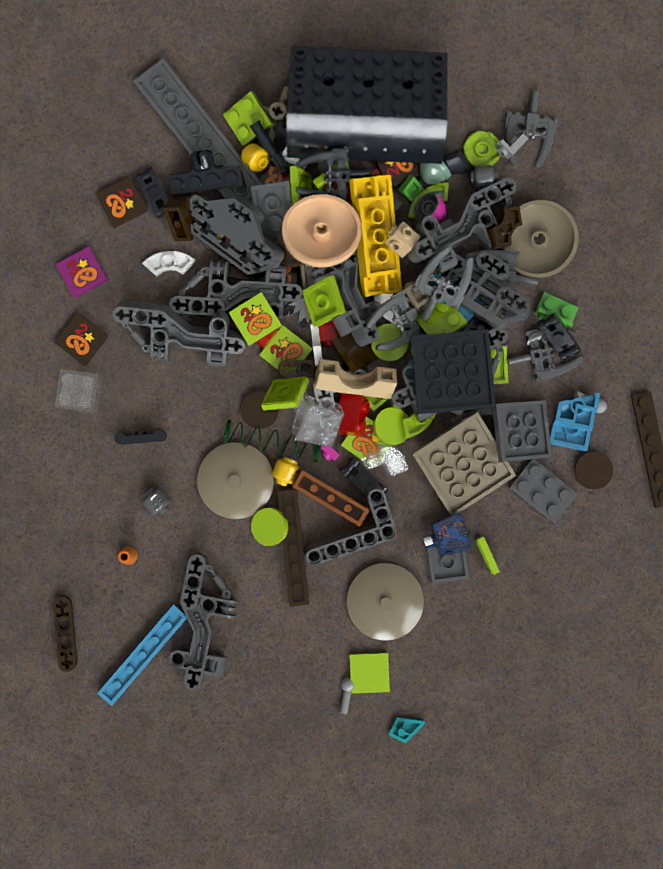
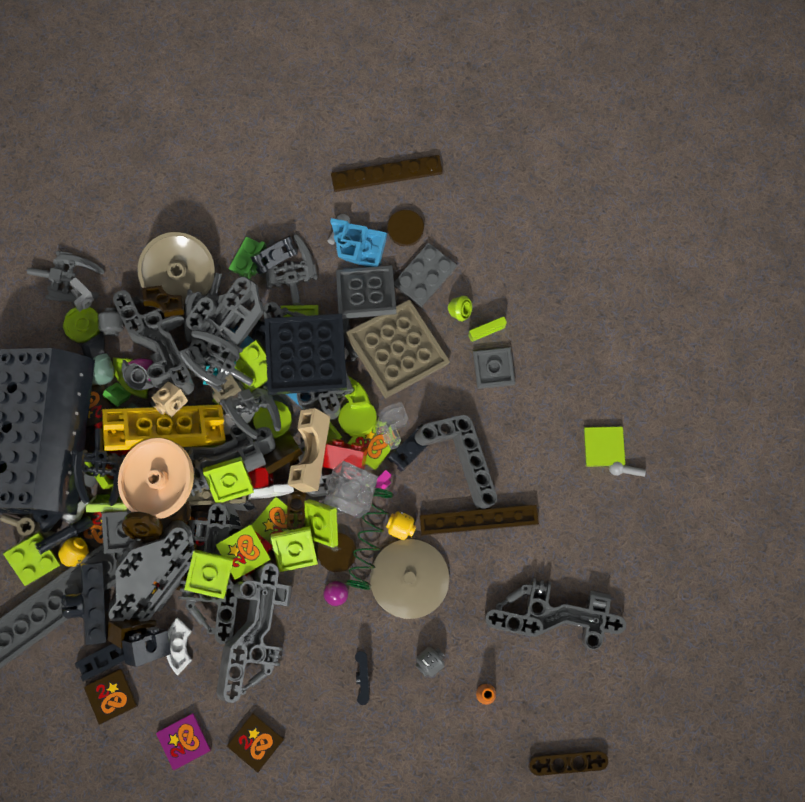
camera: 85 degrees left, 10 degrees down
(78, 391) = (311, 744): clear brick -> none
(142, 655) = (590, 679): dark azure plate -> none
(158, 225) = (138, 653): none -> black brick
(219, 409) = (335, 593): none -> magenta piece
(232, 287) = (209, 574): none -> lime tile
(261, 368) = (294, 549): none -> lime tile
(269, 526) = (457, 543): lime tile -> none
(275, 221) = (142, 526): none -> dark brown tile
(330, 498) = (429, 480): dark orange brick -> none
(385, 601) = (533, 429): dark tan dish -> none
(405, 728) = (658, 412): teal piece -> none
(448, 536) = (468, 364): torso -> none
(508, 527) = (460, 308): none -> lime cone

